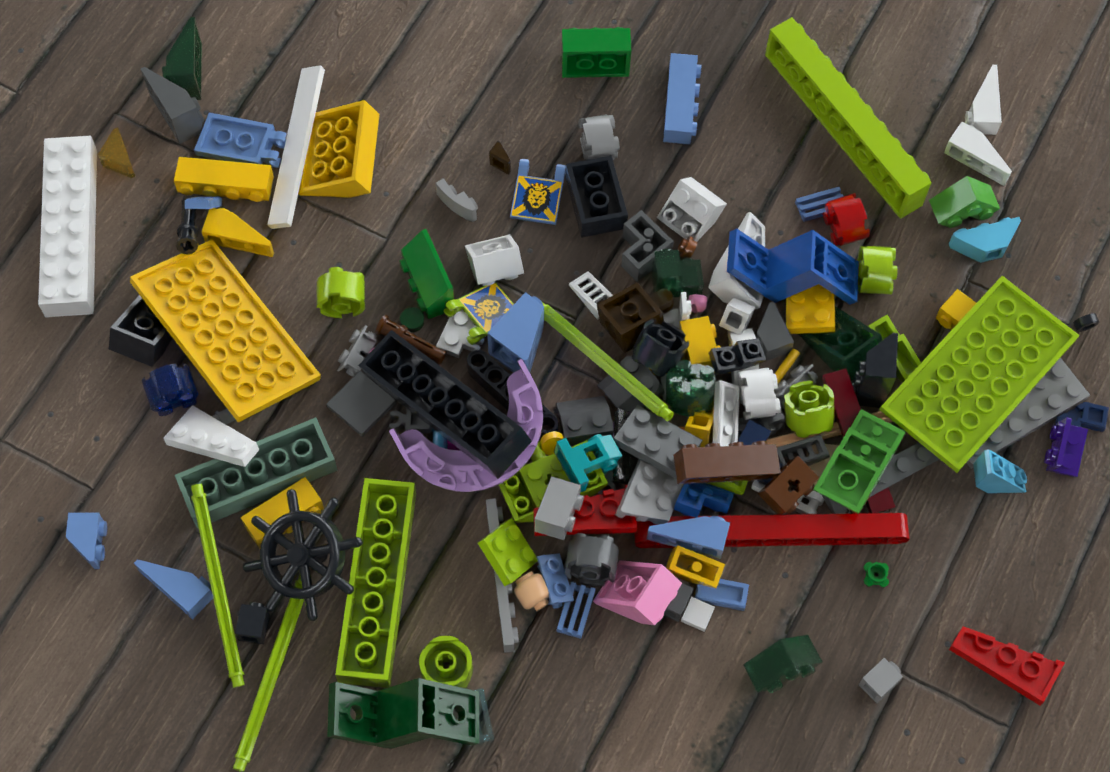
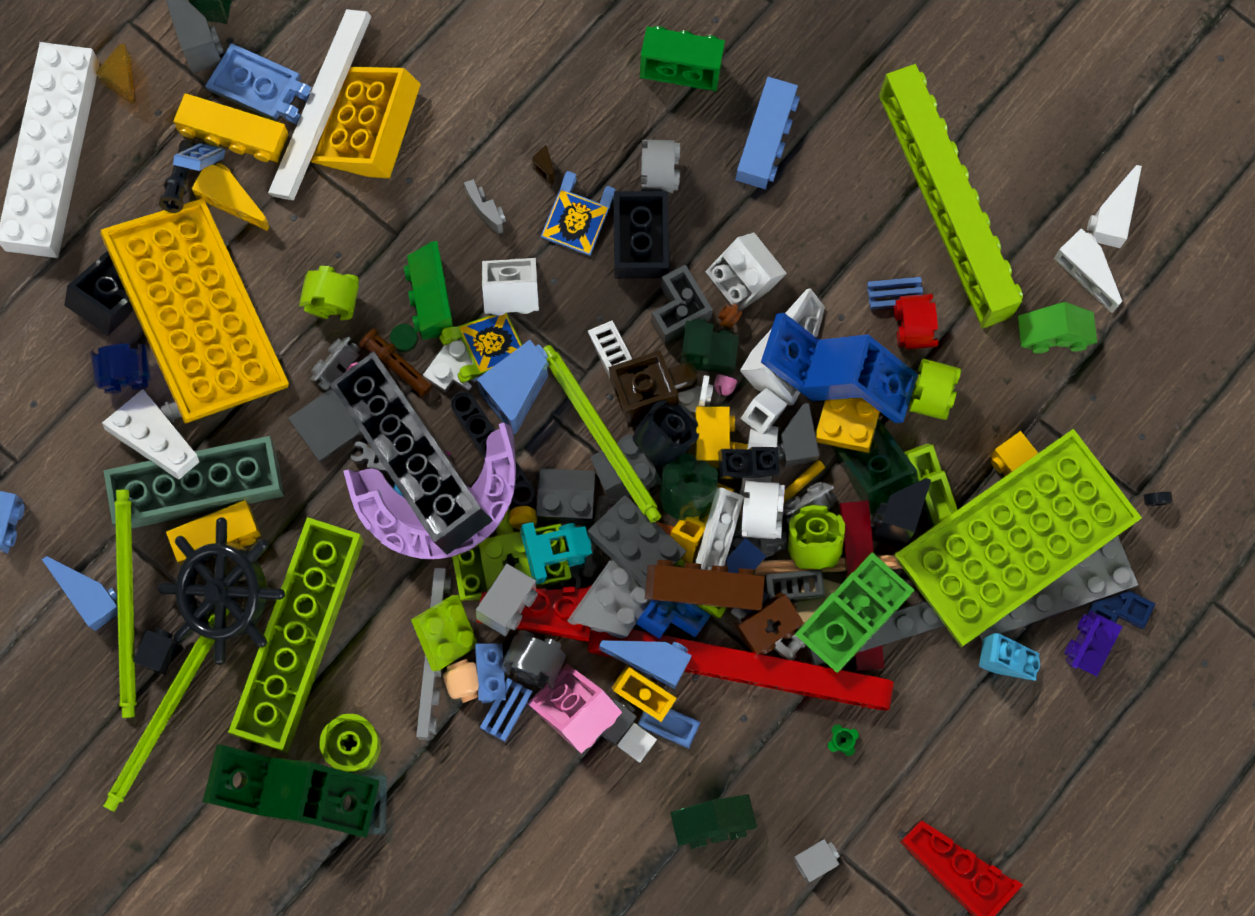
camera: 10 degrees right, 10 degrees up
(986, 240) = (1071, 377): medium azure slope -> none

